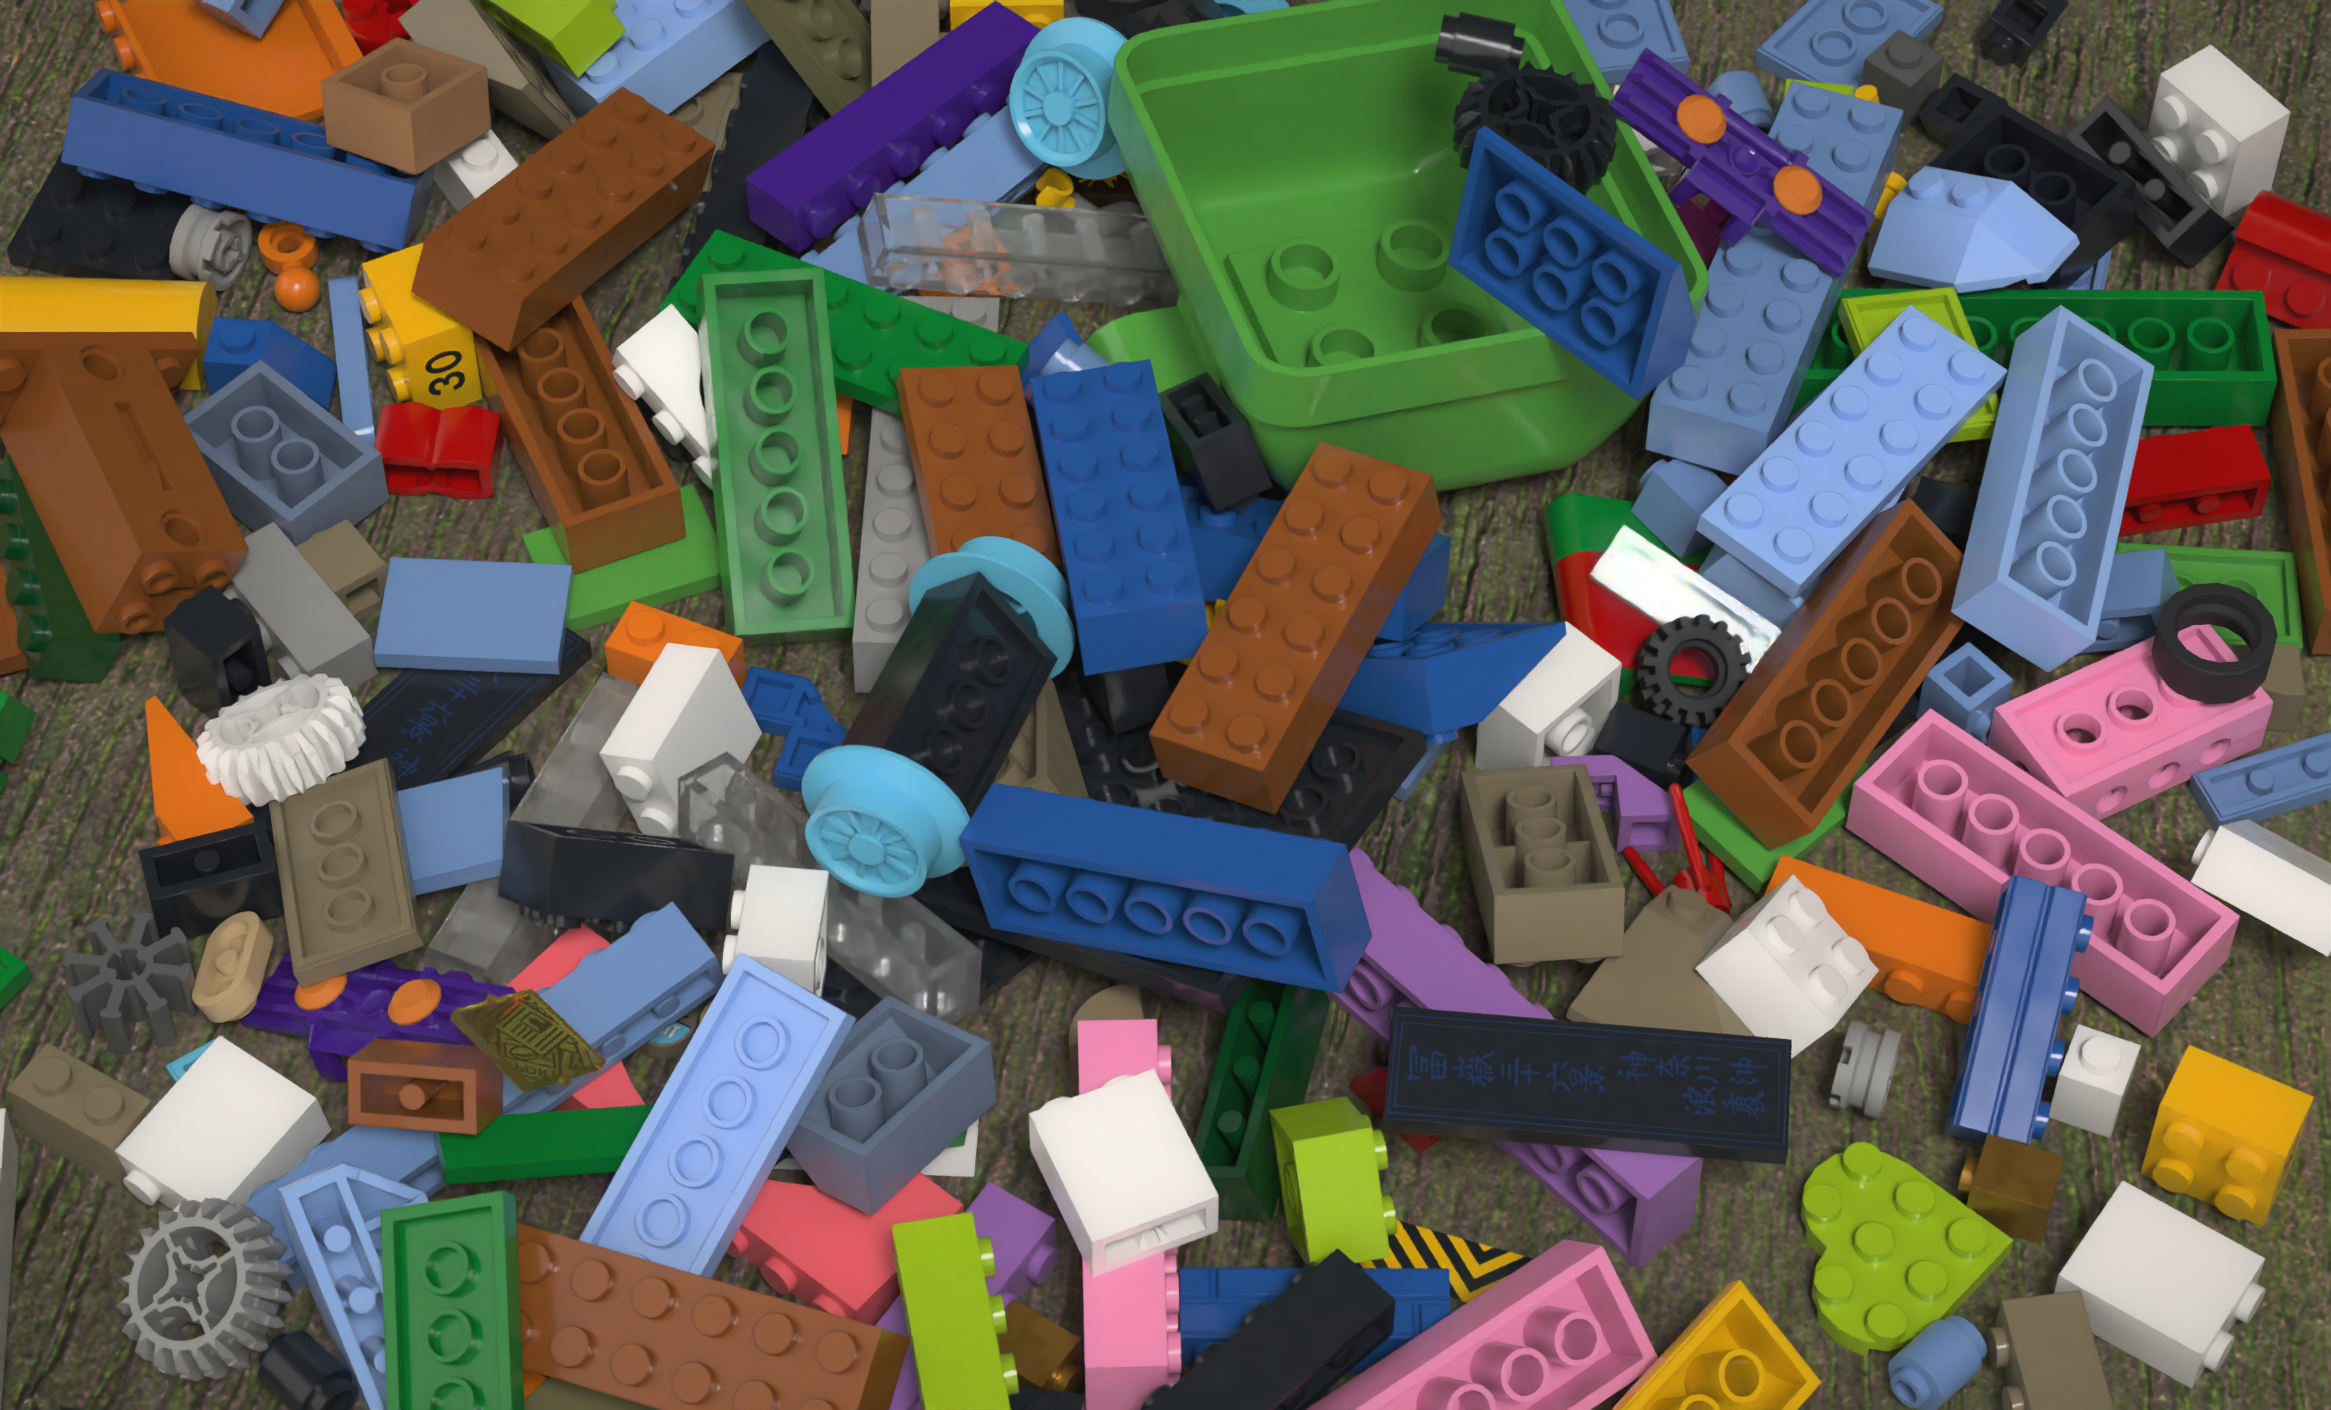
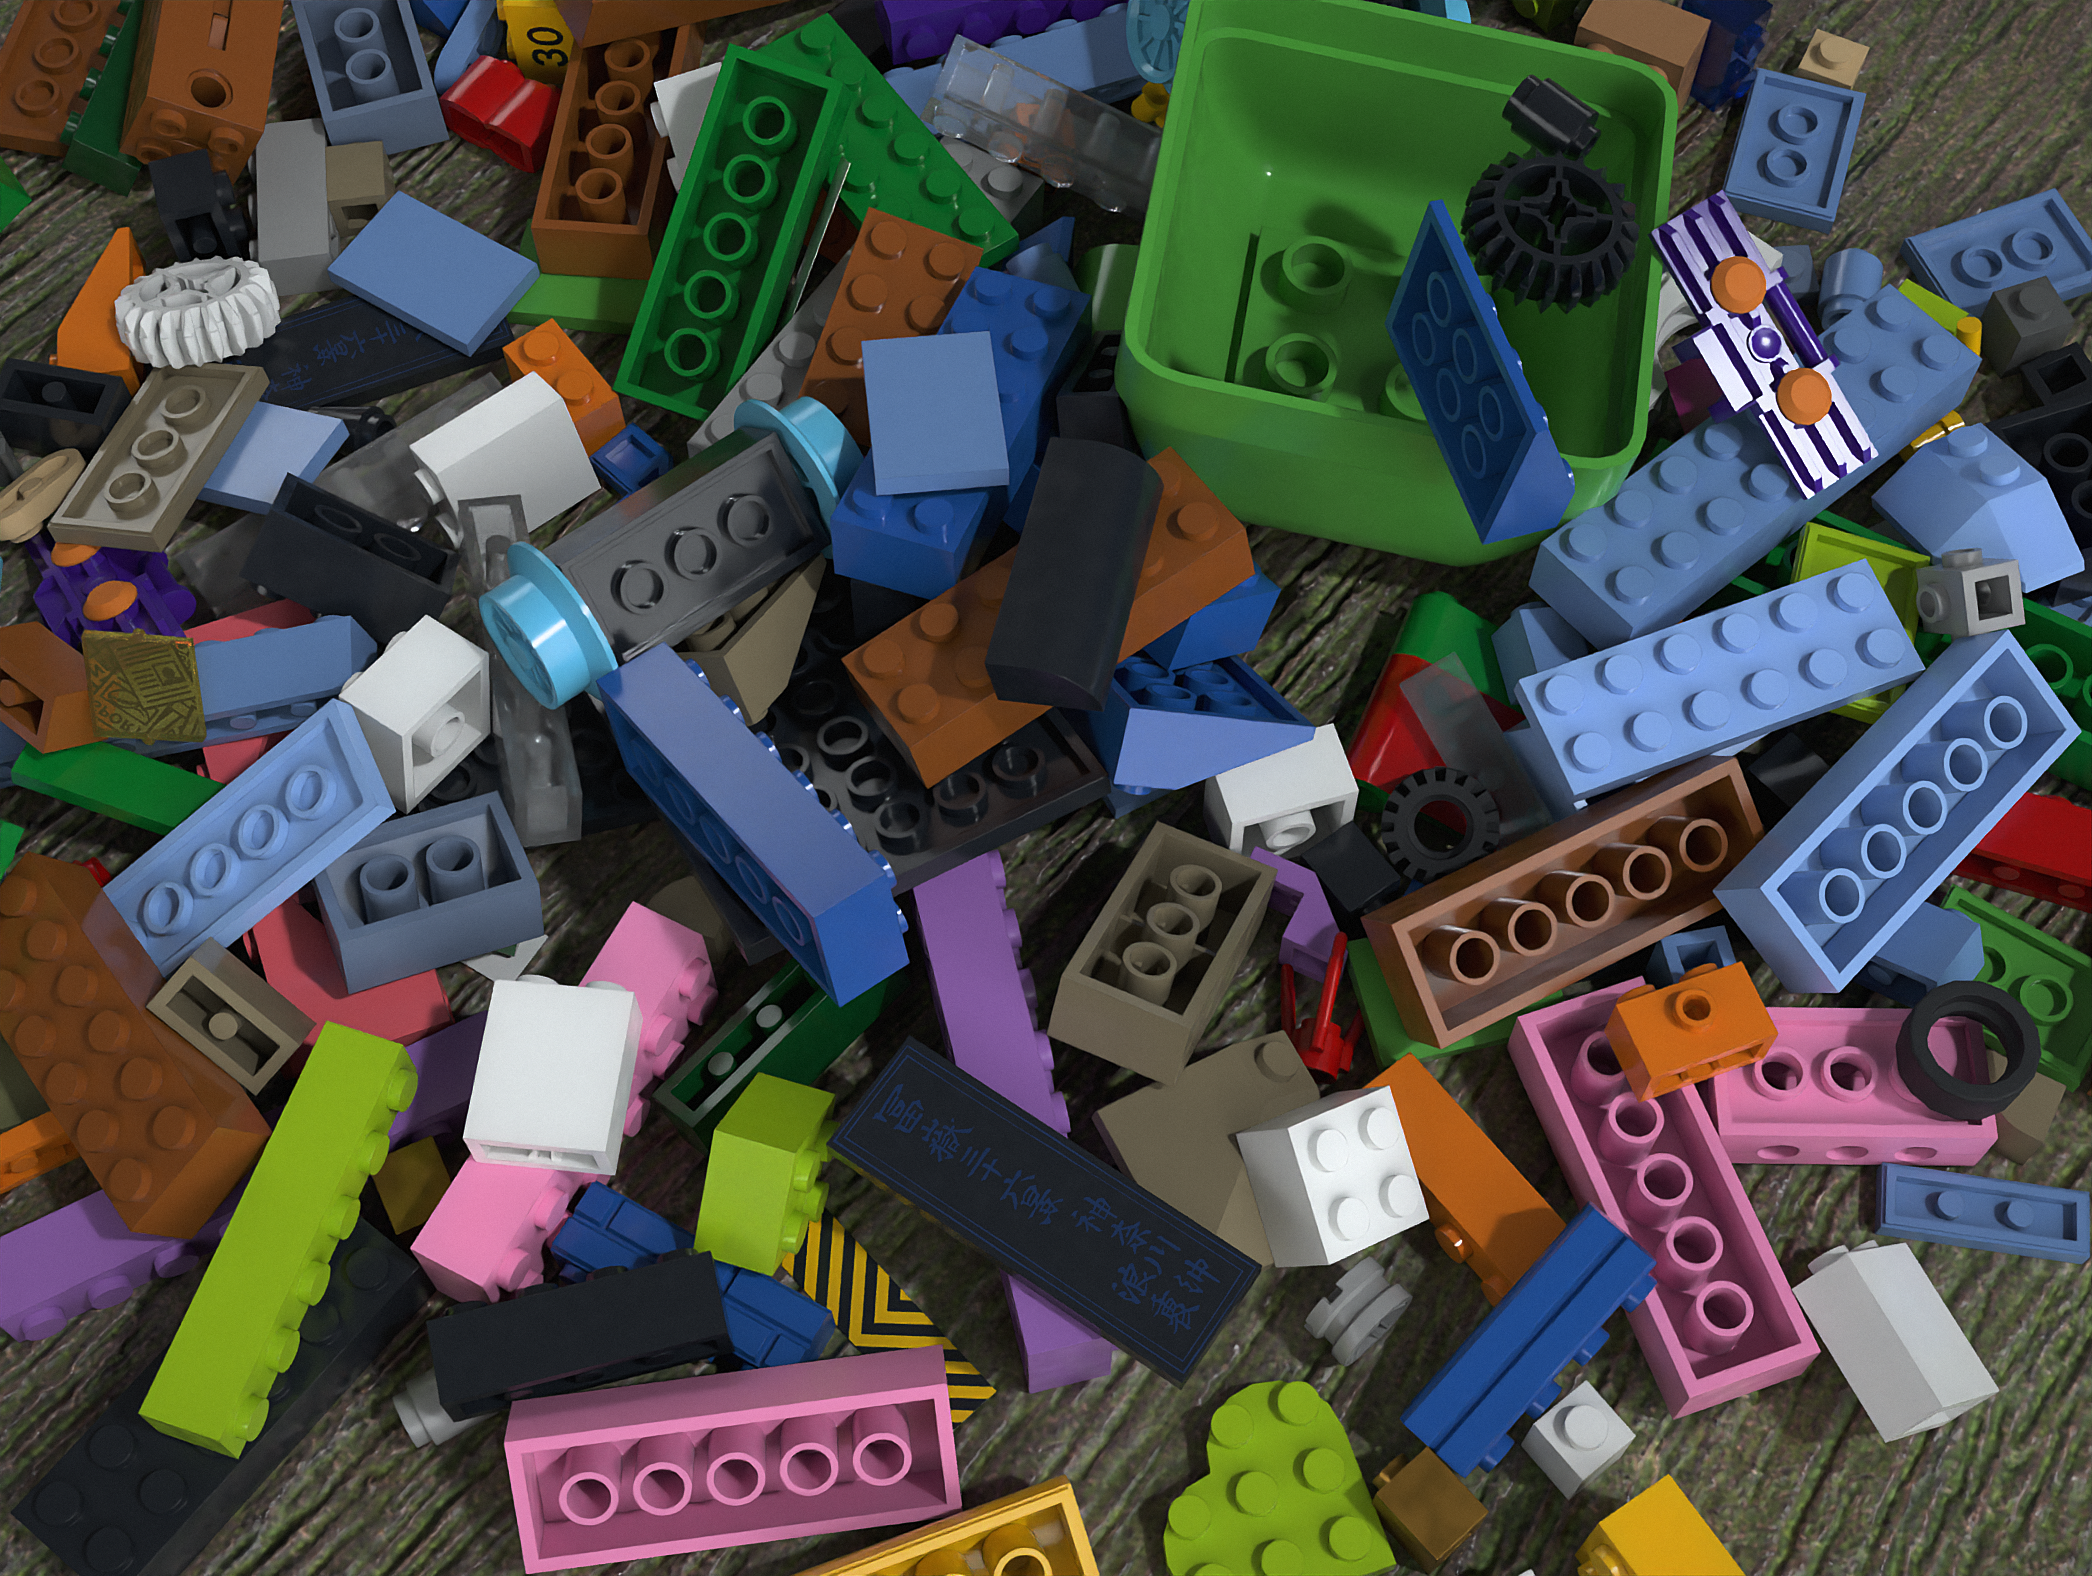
camera: 30 degrees right, 10 degrees up
(794, 1266) = (231, 1015): none -> dark tan brick
(847, 388) = (814, 243): none -> sticker
(1106, 497) = (934, 413): none -> medium blue tile
(1324, 568) = (1074, 576): none -> black brick
(1997, 724) = (1689, 1029): none -> orange brick
(2006, 298) = (1969, 594): none -> light grey brick

